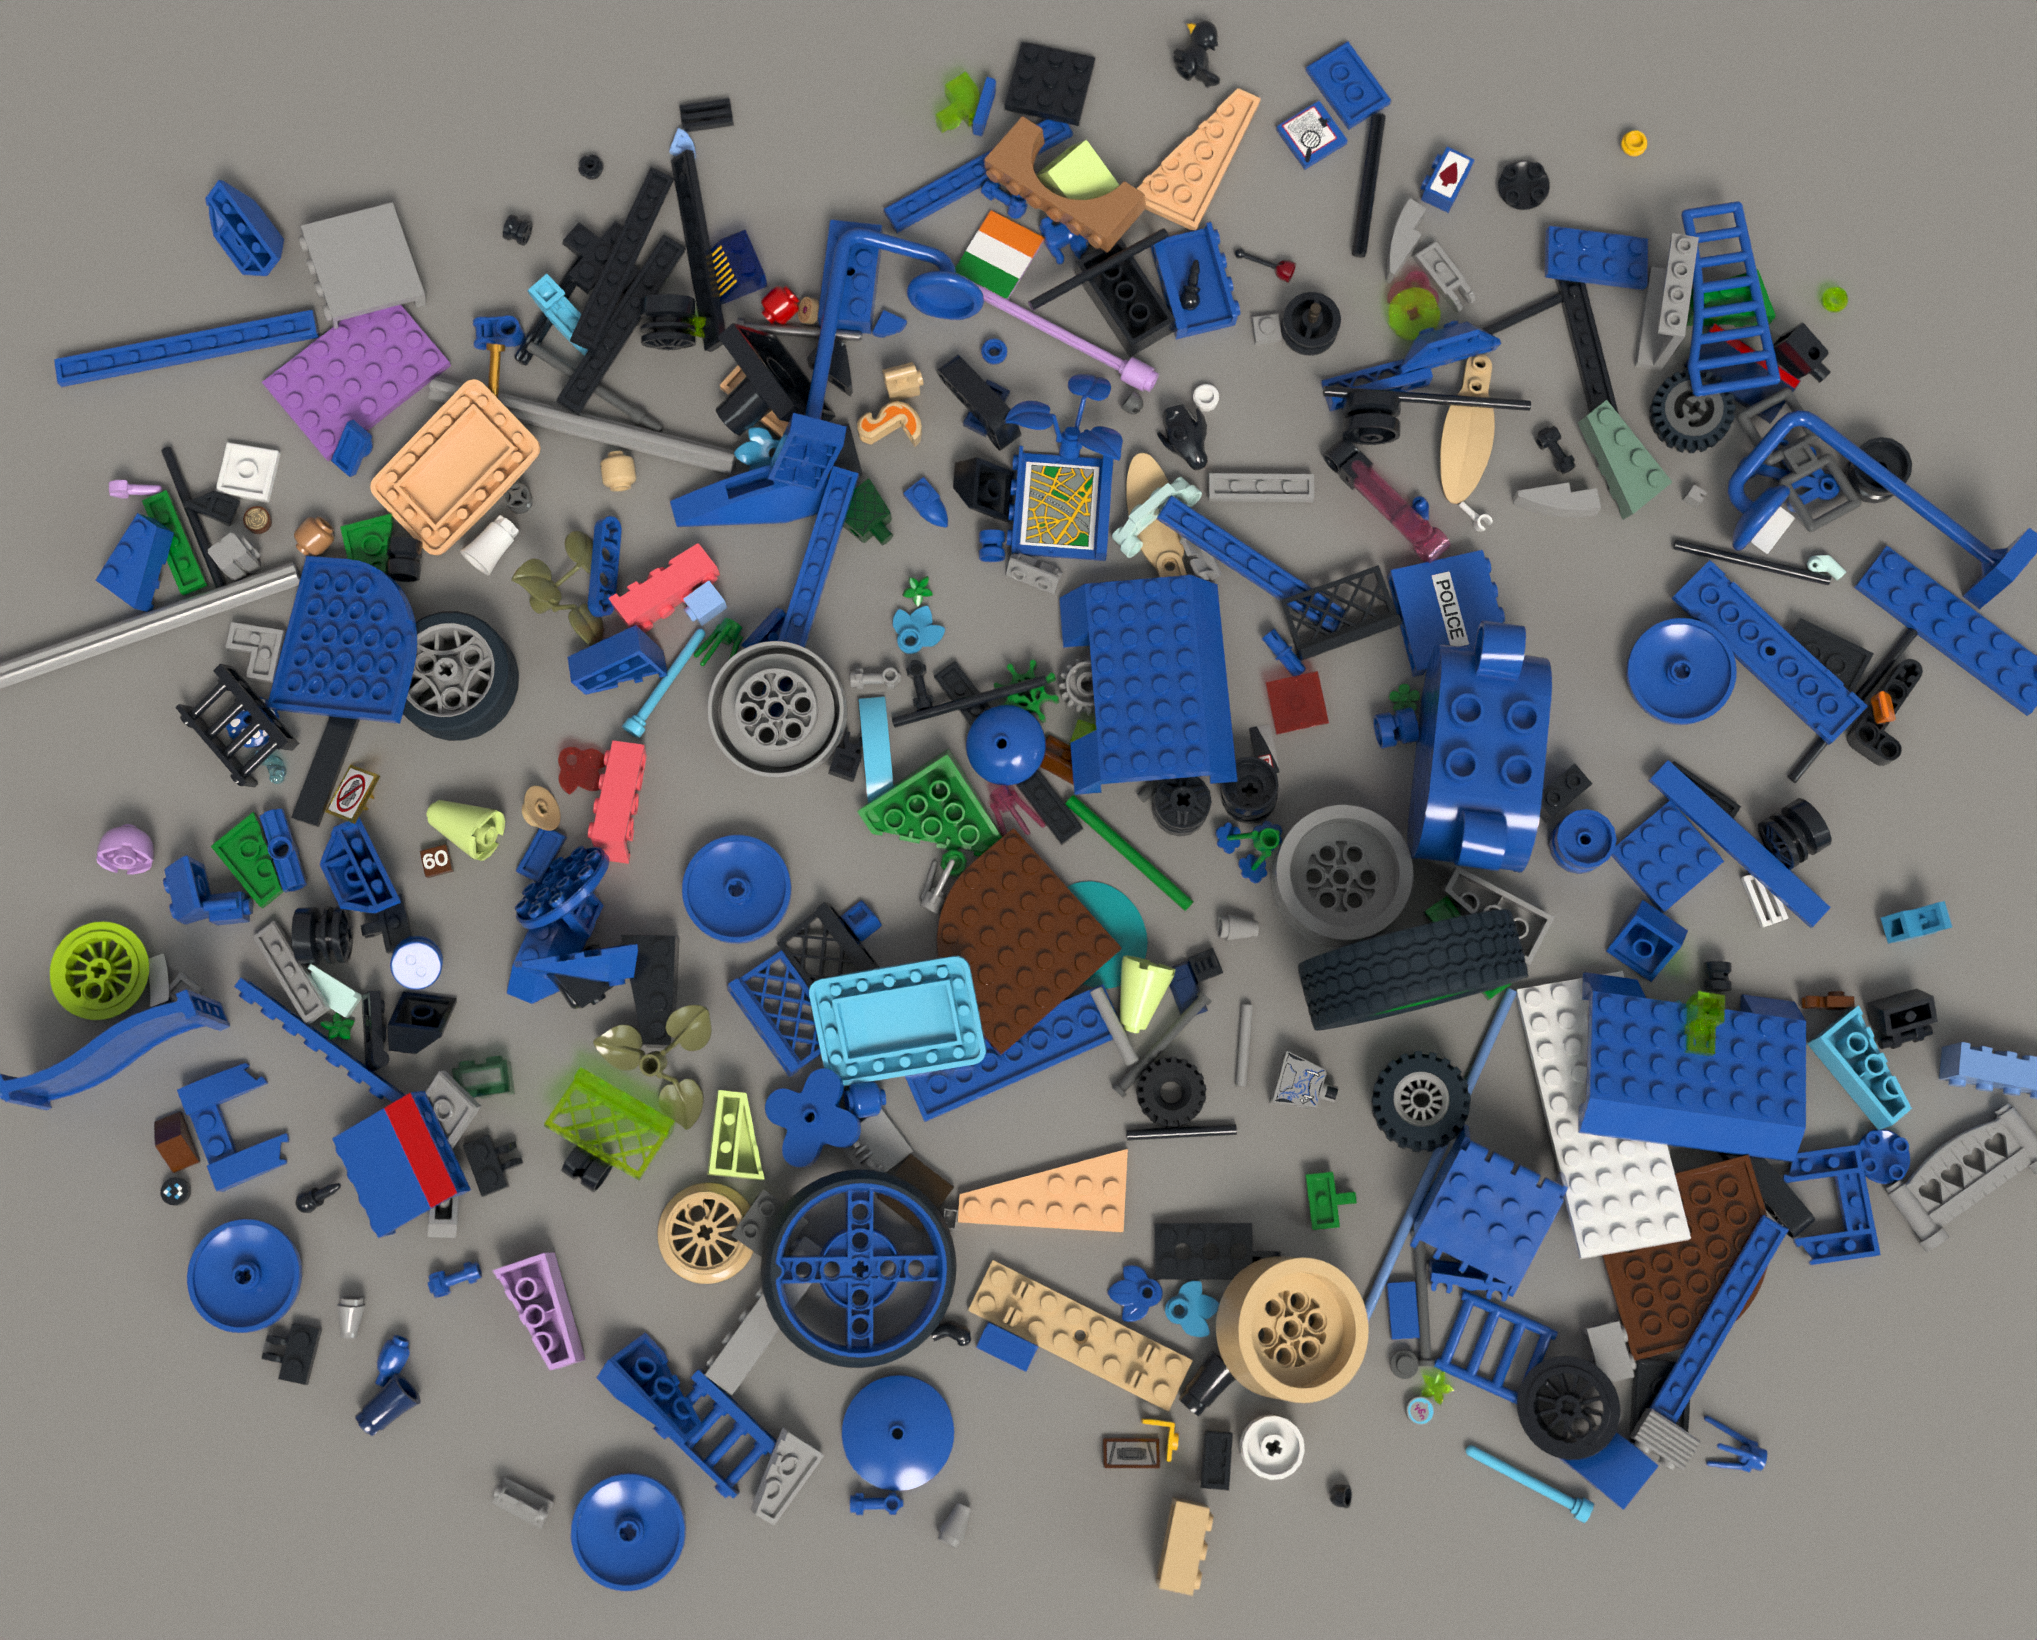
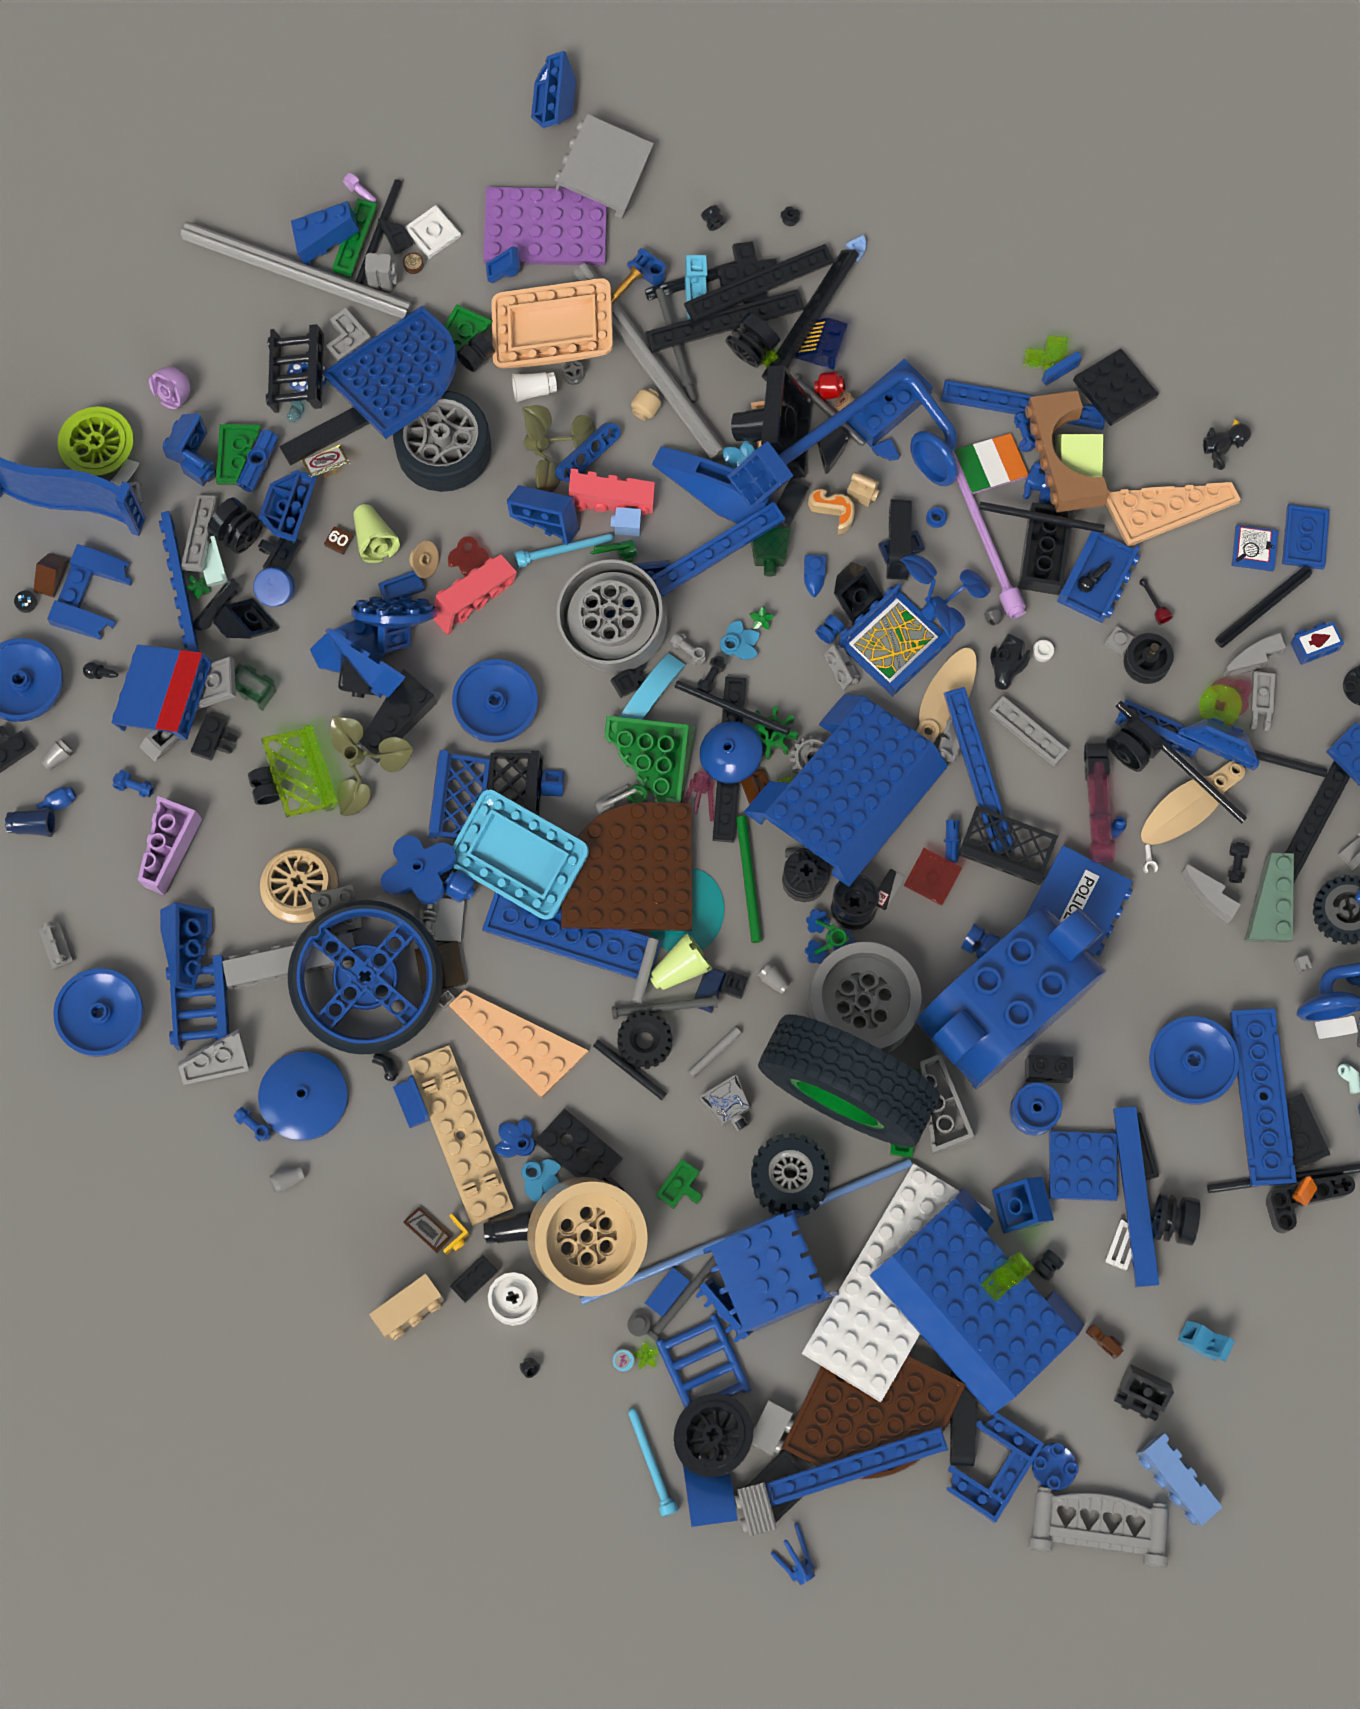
camera: 40 degrees right, 5 degrees down
(186, 348) = (461, 133): blue plate -> none
(314, 536) = (436, 297): medium nougat head -> none
(705, 111) = (888, 238): black tile -> none
(733, 1139) = (361, 842): yellowish green wedge -> none
(1146, 513) = (937, 686): light aqua plate -> none
(1404, 698) = (1001, 930): green plant -> none
(1752, 562) = (1302, 1033): black piece -> none
(1860, 1068) = (1088, 1397): medium azure wedge -> none

